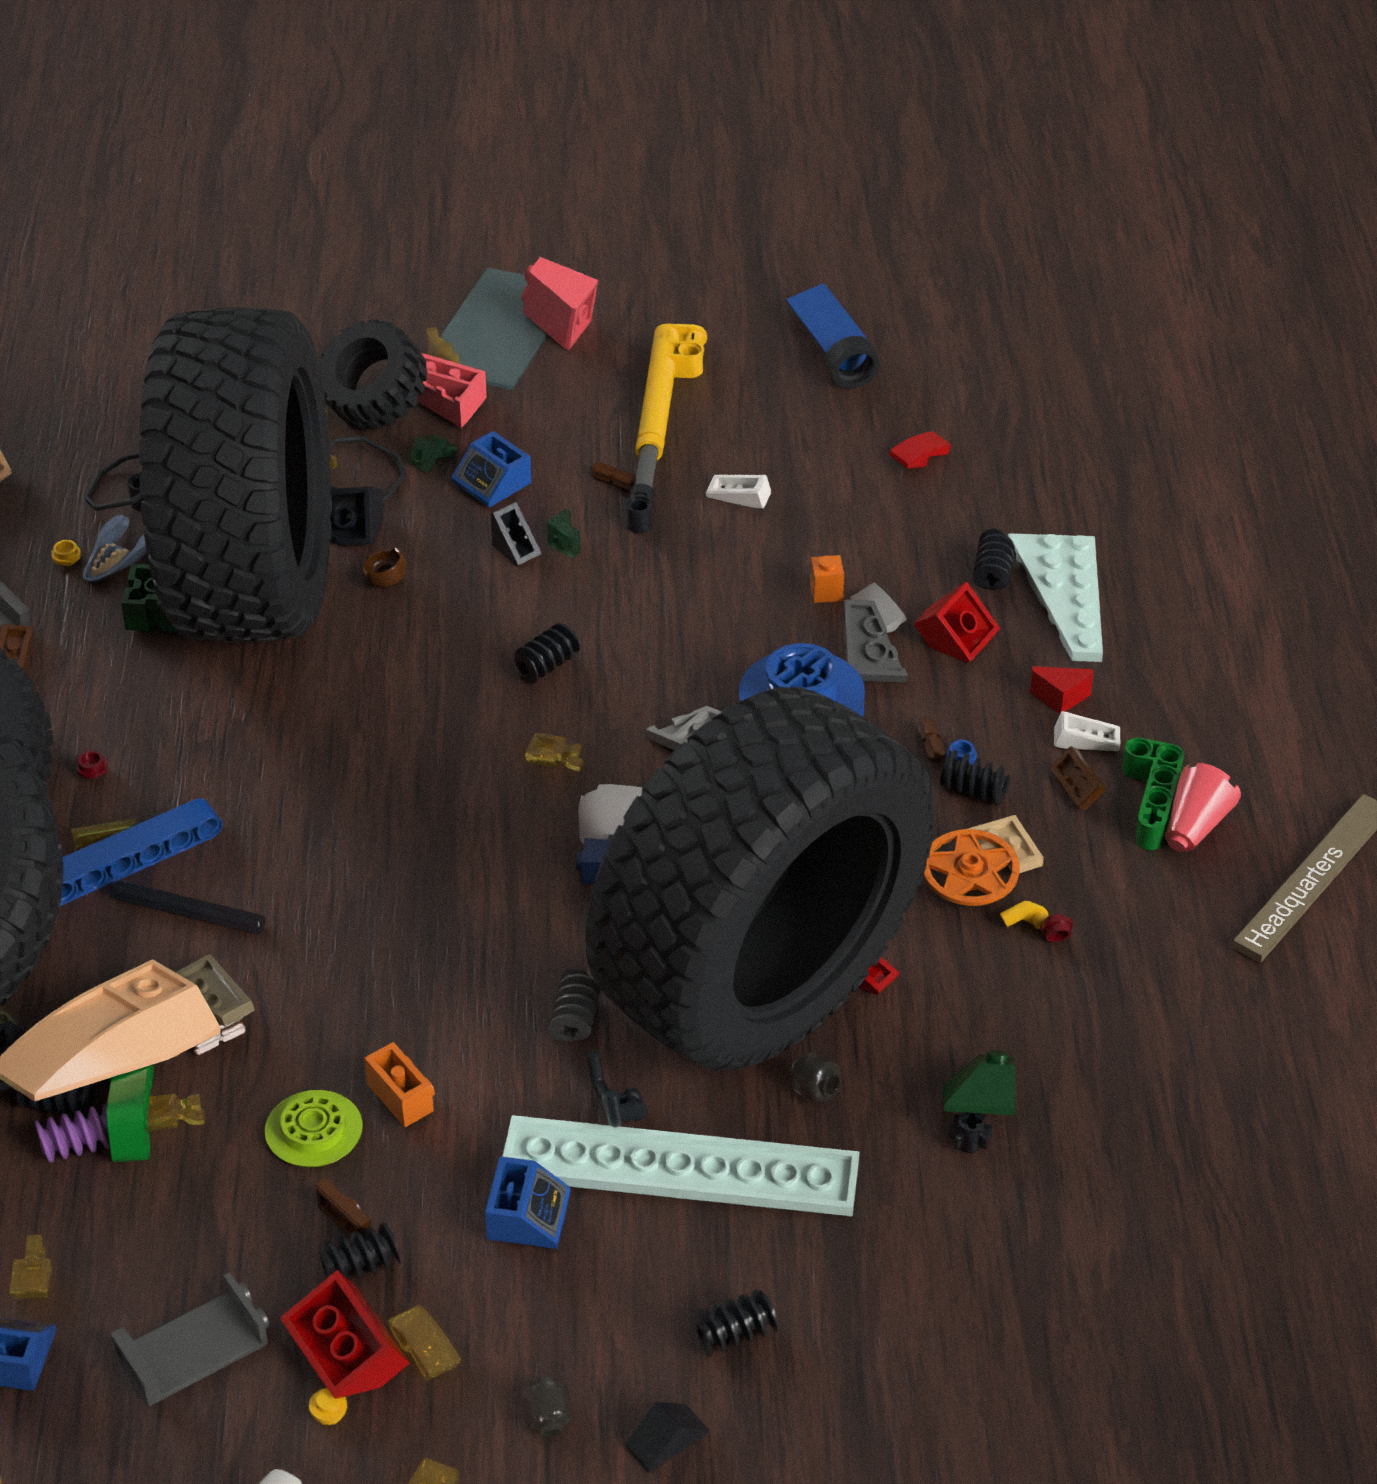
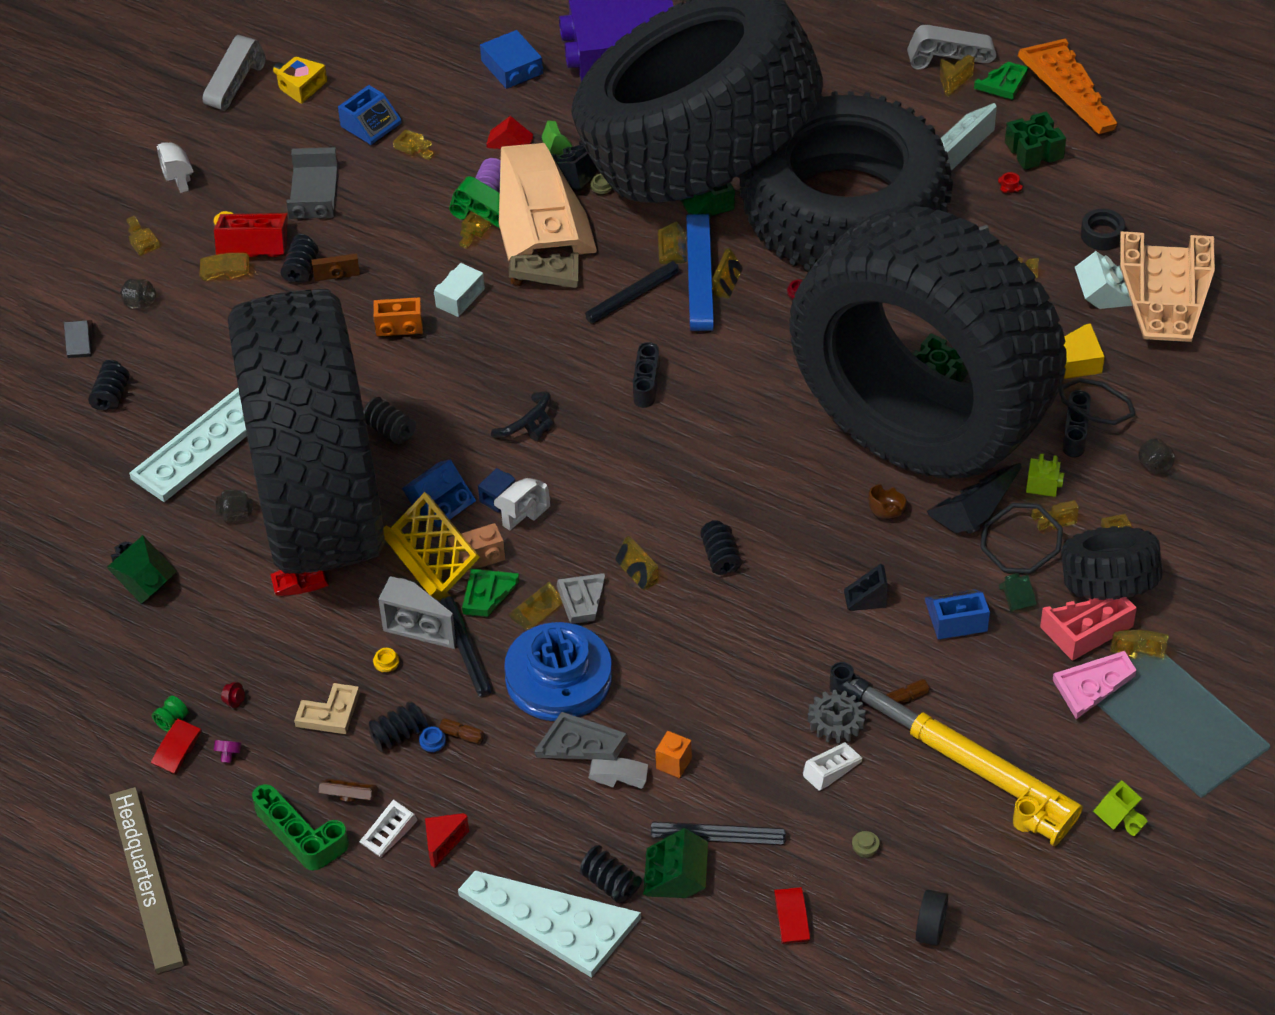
camera: 125 degrees right, 5 degrees up
(61, 517) = (1083, 353): none -> yellow slope
(81, 911) = (672, 244): none -> clear yellow slope
(300, 1061) = (459, 289): none -> light aqua brick
(312, 1118) = (411, 281): lime wheel -> none
(328, 823) = (646, 374): none -> black beam
(465, 878) = (527, 421): none -> black piece
(510, 371) = (1093, 681): none -> bright pink wing
(550, 749) = (625, 512): clear yellow plate -> none
(559, 300) = (1152, 741): coral slope -> none
(562, 535) = (851, 620): clear green bracket -> none
(612, 710) = (637, 564): none -> clear yellow slope
(639, 309) = (1119, 807): none -> lime brick
(685, 501) = (836, 716): none -> dark grey gear
(805, 439) = (865, 844): none -> olive plate
(826, 321) = (1005, 941): blue brick -> none
(879, 527) = (722, 832): none -> black axle
(943, 530) = (676, 866): none -> dark green slope
(957, 624) = (556, 806): red slope -> none
(971, 867) = (320, 673): orange wheel -> none
(1025, 911) = (256, 695): yellow arm -> none
(1120, 893) = (227, 748): none -> magenta tile
(1128, 962) = (169, 713): none -> green wheel
(1154, 933) = (175, 746): none -> red slope
(1199, 805) = (255, 838): coral cone -> none

